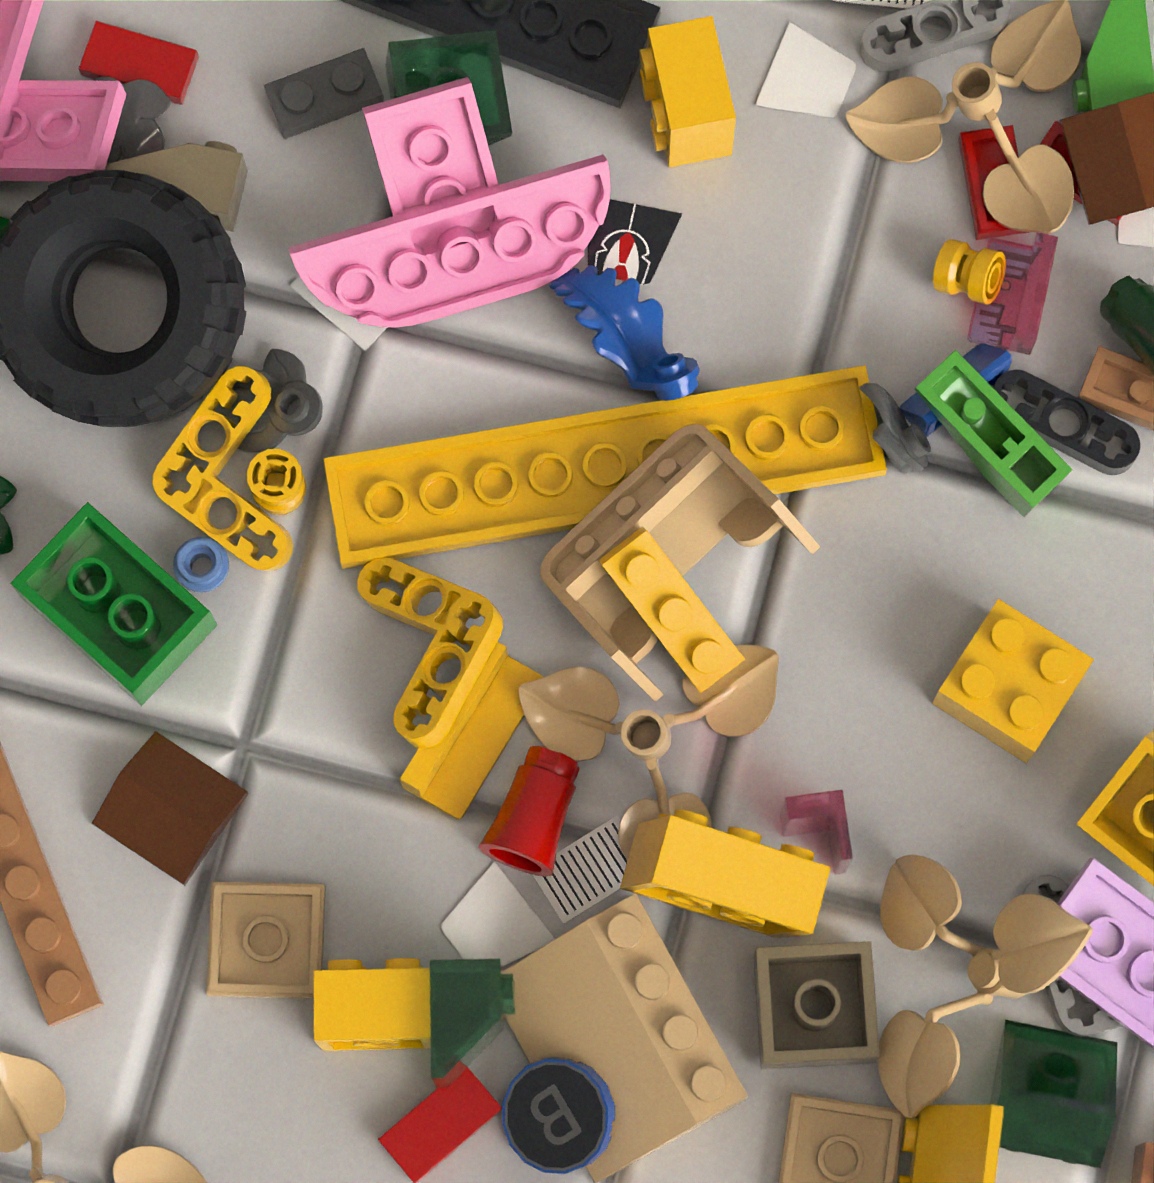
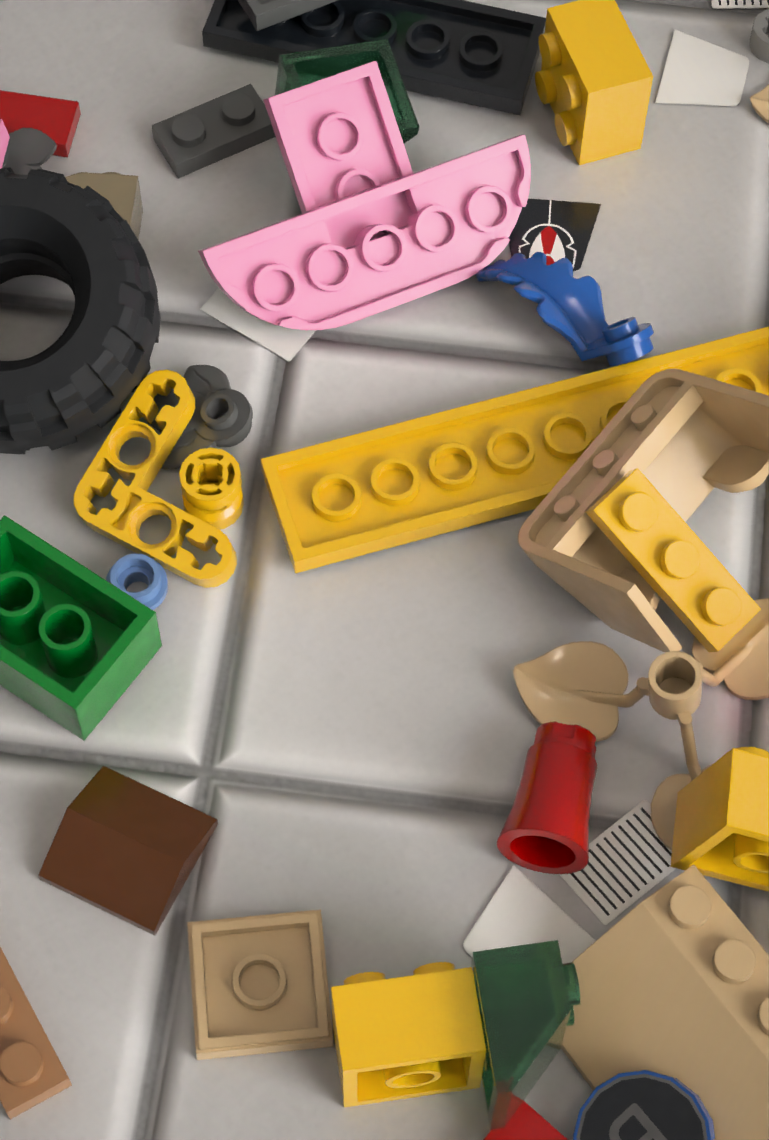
camera: 10 degrees left, 15 degrees down
(448, 626) = (428, 617): yellow beam -> none
(460, 764) = (462, 725): yellow panel -> none

